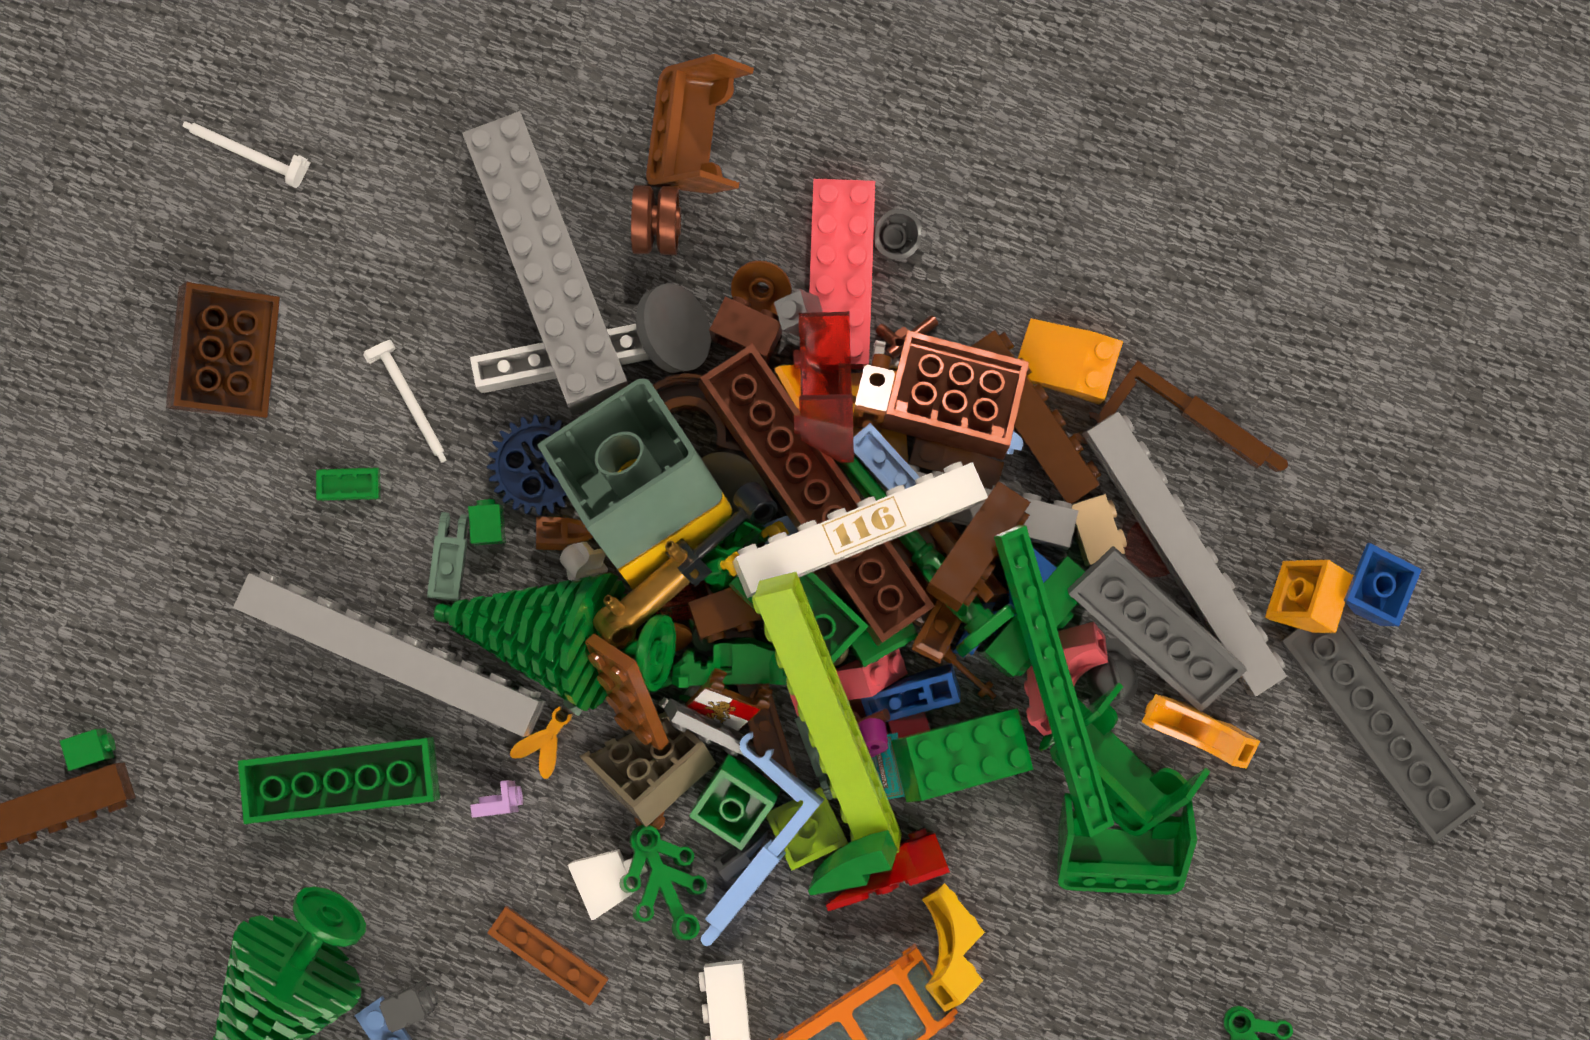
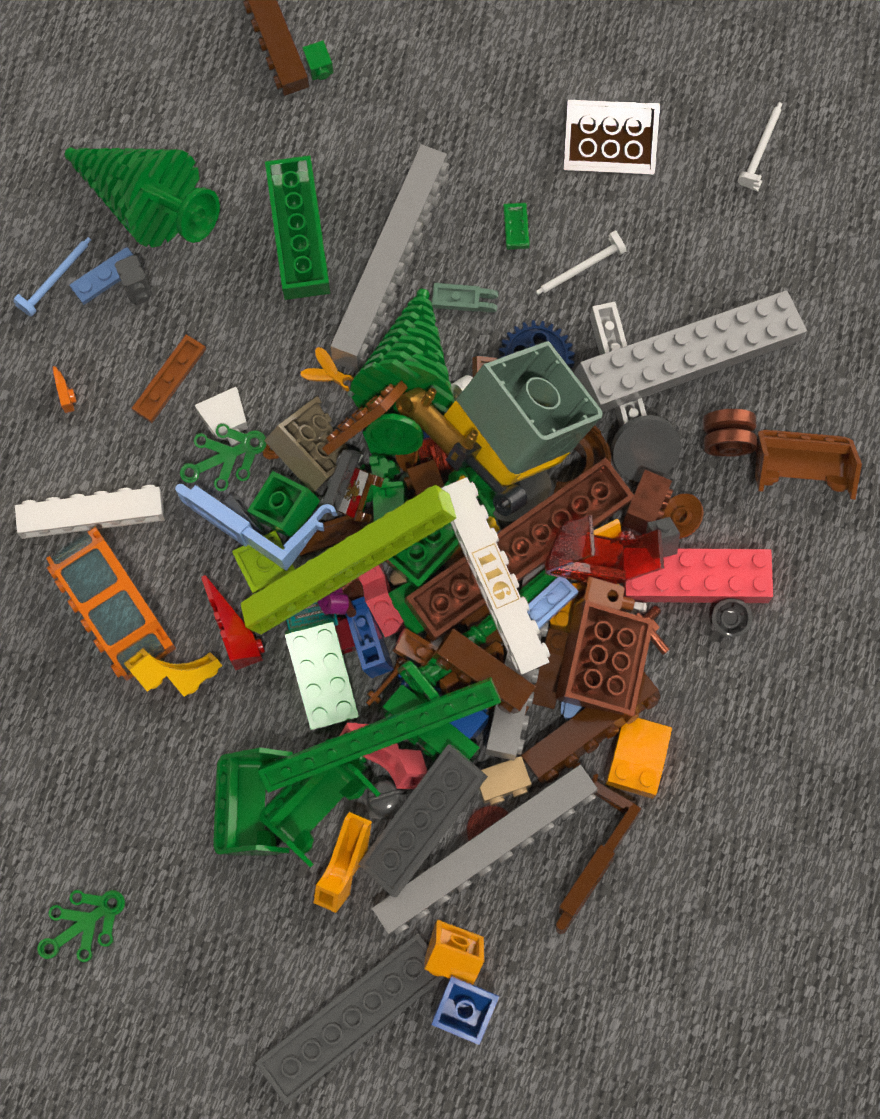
camera: 90 degrees right, 10 degrees down
(486, 523) = (490, 322): green brick -> none
(499, 804) = (284, 343): lavender bracket -> none
(854, 864) = (237, 595): green slope -> none

